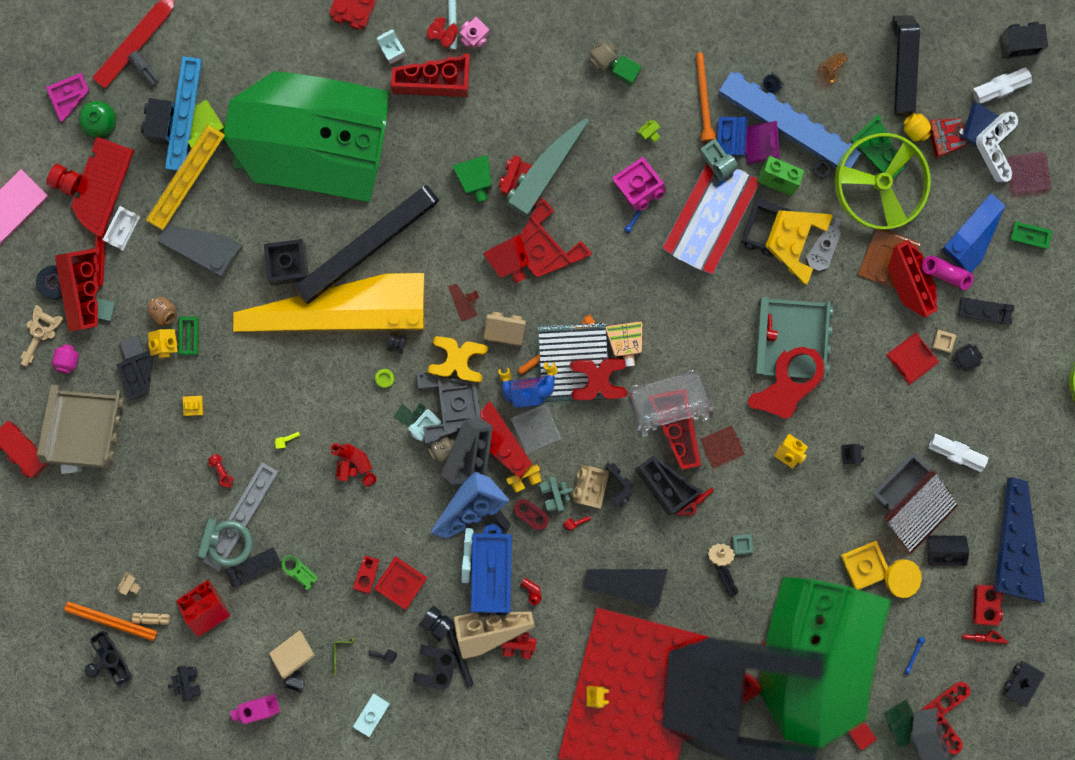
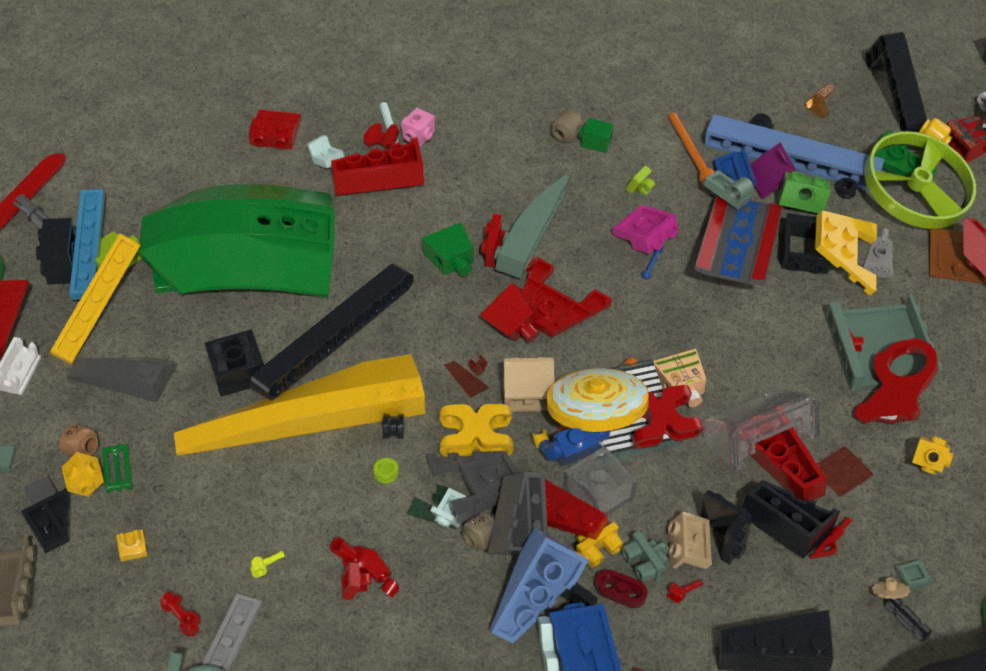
camera: 15 degrees left, 35 degrees down
(549, 364) = (597, 399): none -> dish

